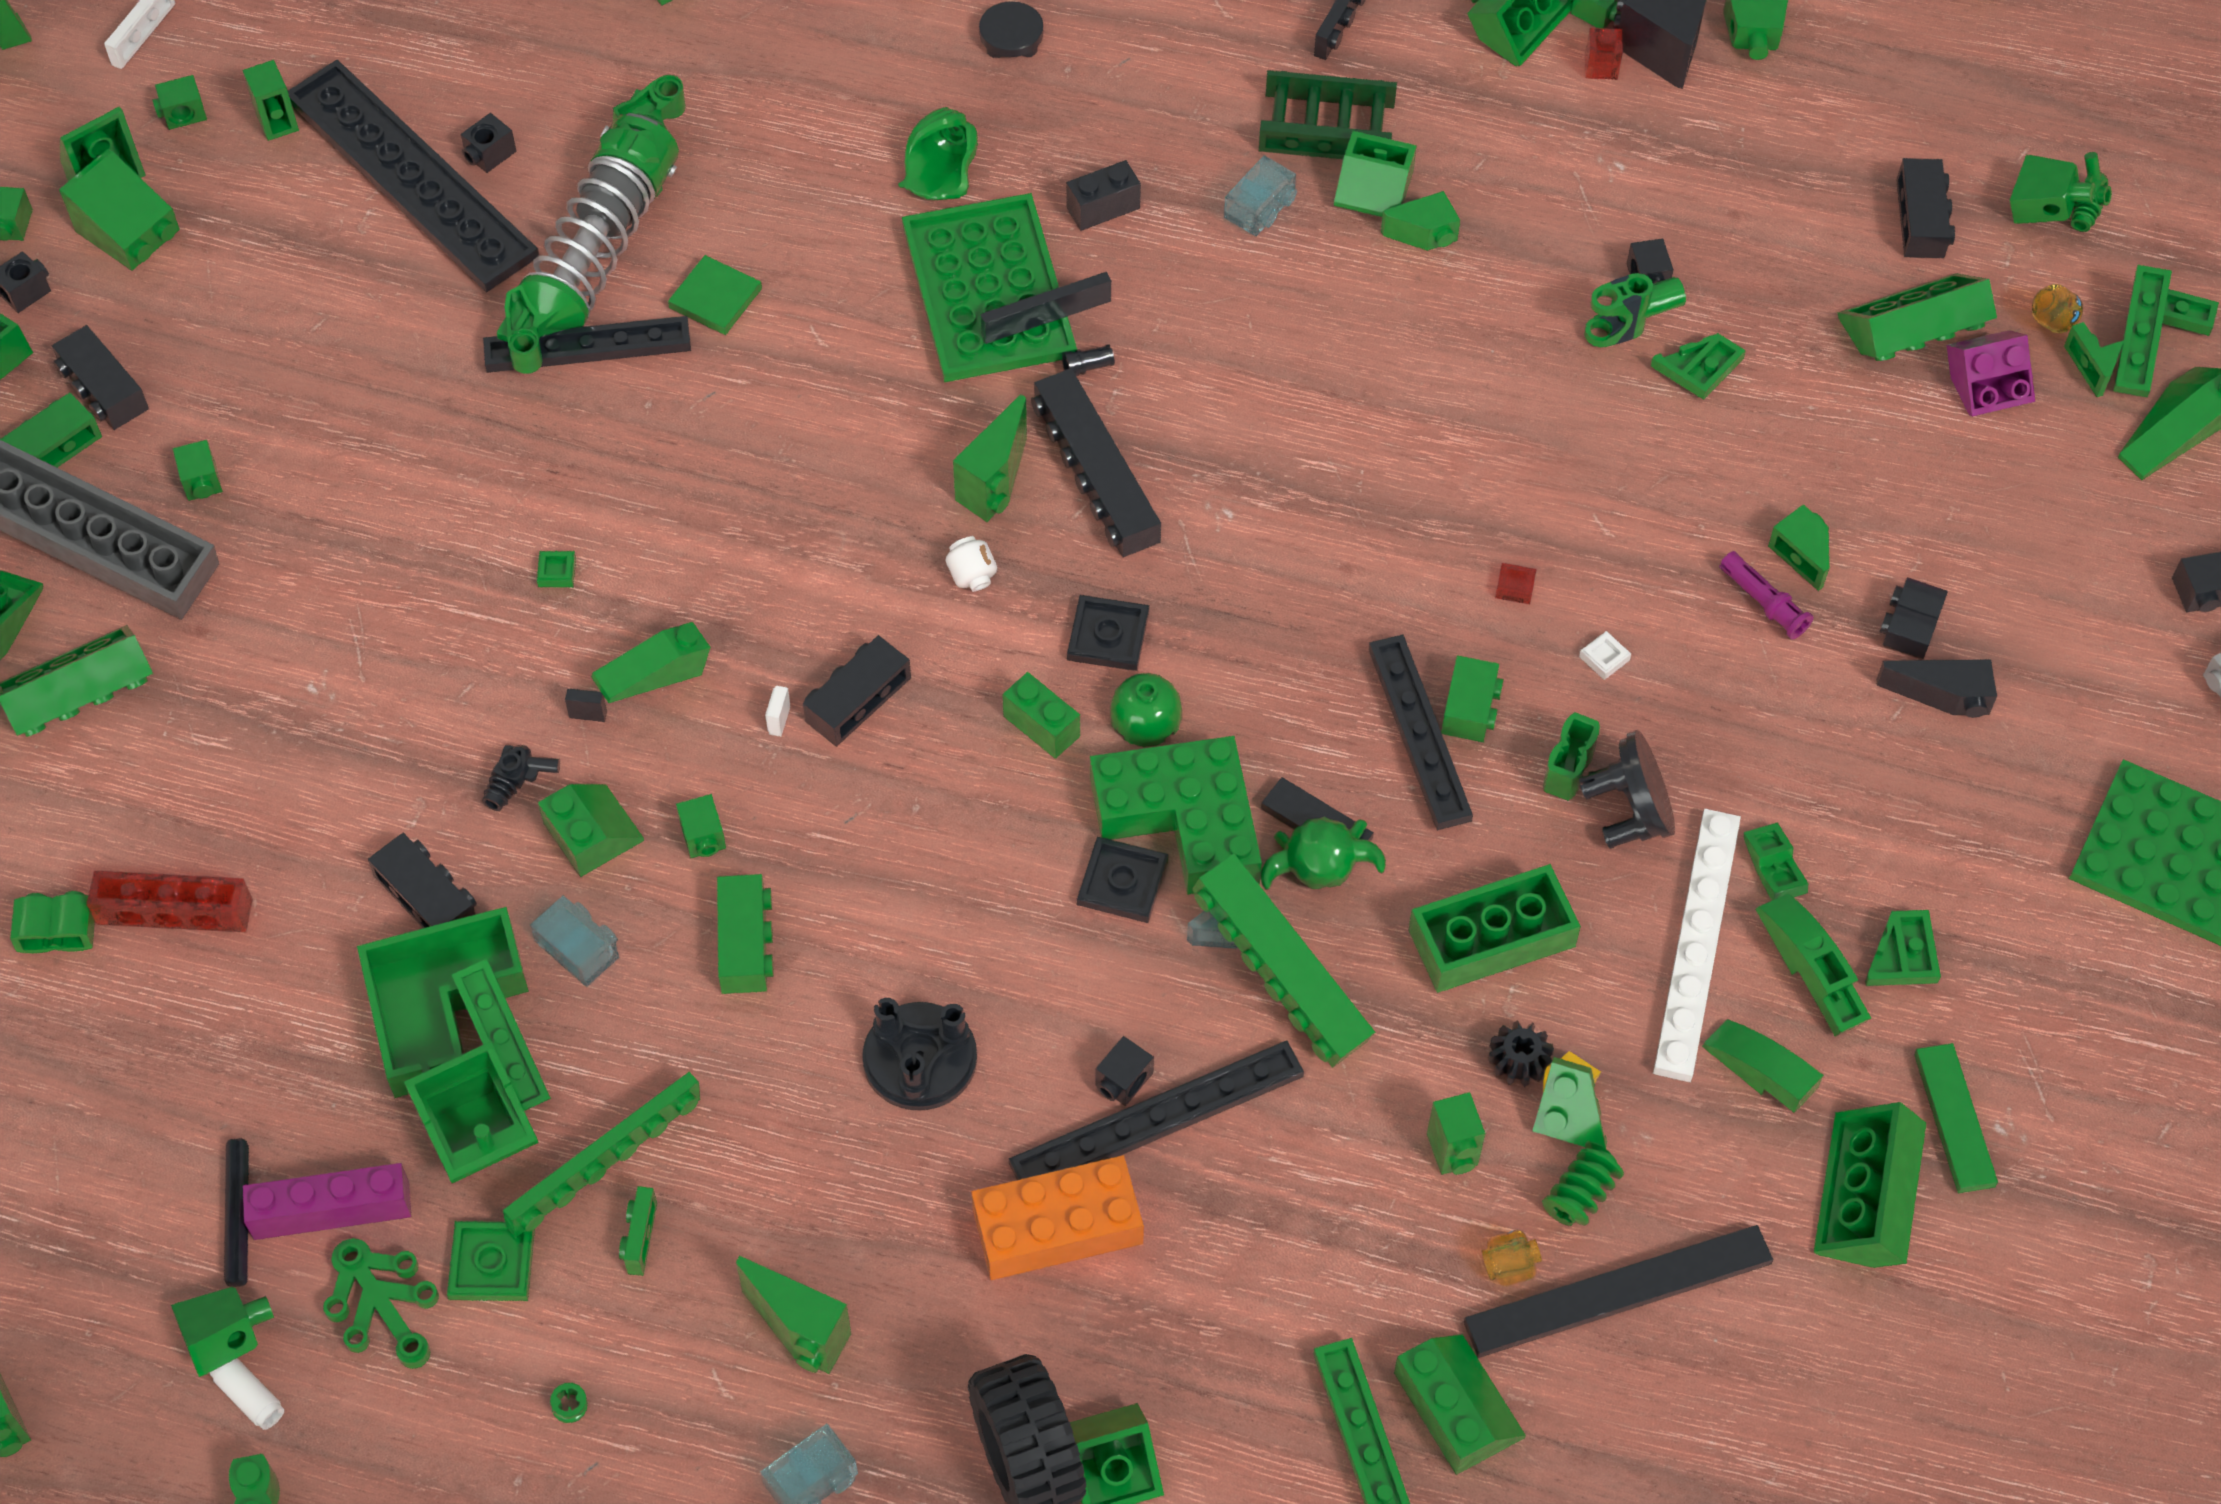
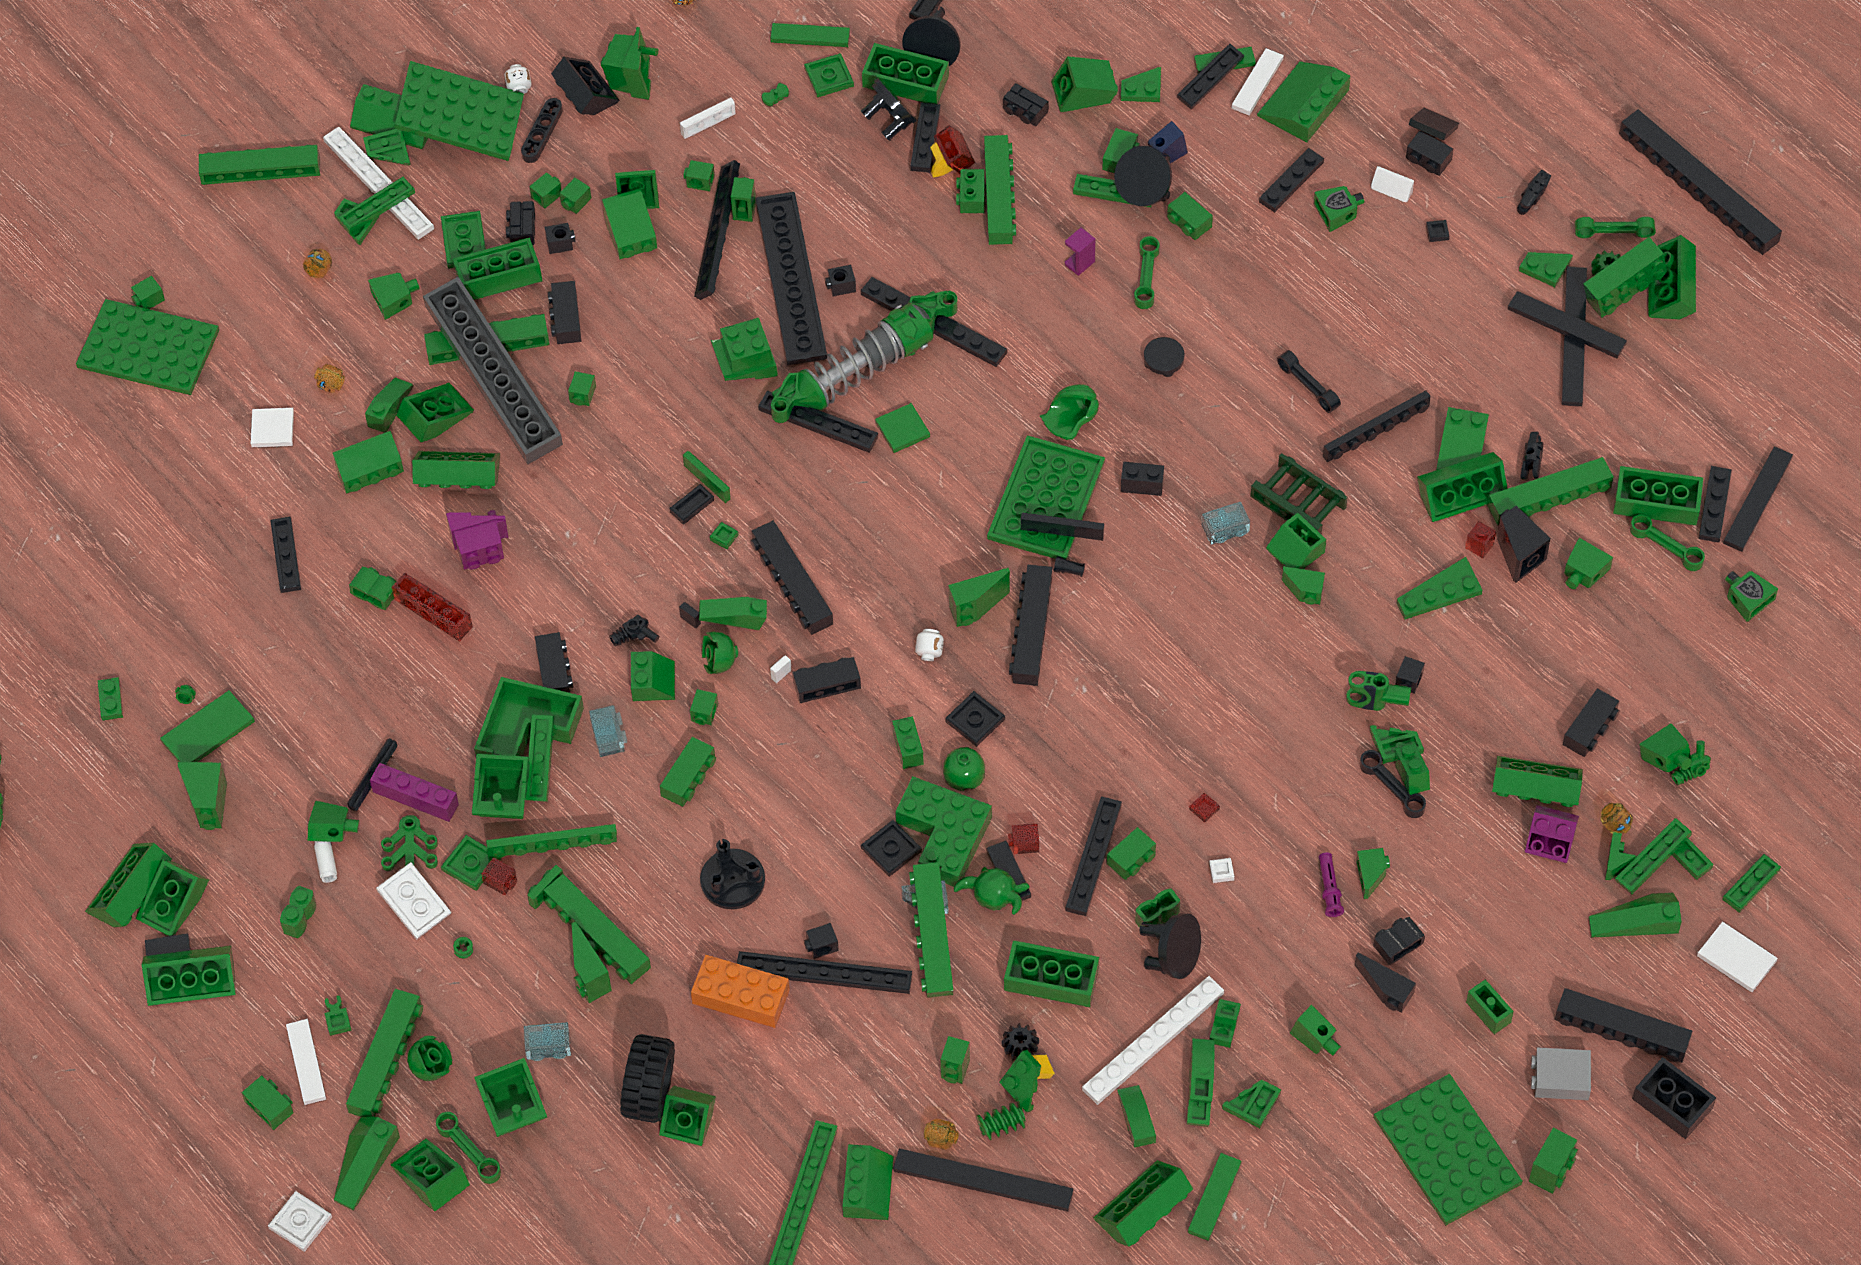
camera: 35 degrees right, 0 degrees up
(176, 761) = (477, 537): none -> magenta piece
(257, 162) = (716, 231): none -> black plate
(417, 297) = (744, 352): none -> green piece
(439, 1374) = (413, 900): none -> white tile
(474, 499) = (706, 476): none -> green tile
(476, 550) = (691, 504): none -> black tile
(555, 1256) = (499, 876): none -> clear red brick
(668, 735) = (719, 652): none -> green cylinder
(690, 136) = (944, 326): none -> black plate
(702, 574) = (791, 577): none -> black brick
(813, 1258) = (597, 928): none -> green brick
(1307, 759) = (1024, 838): none -> clear red brick
(1601, 141) = (1443, 589): none -> green wing
(1738, 418) = (1392, 784): none -> black piece
(1755, 382) = (1412, 769): none -> green brick
(1911, 802) = (1315, 1032): none -> green torso
(2106, 638) = (1489, 1006): none -> green brick

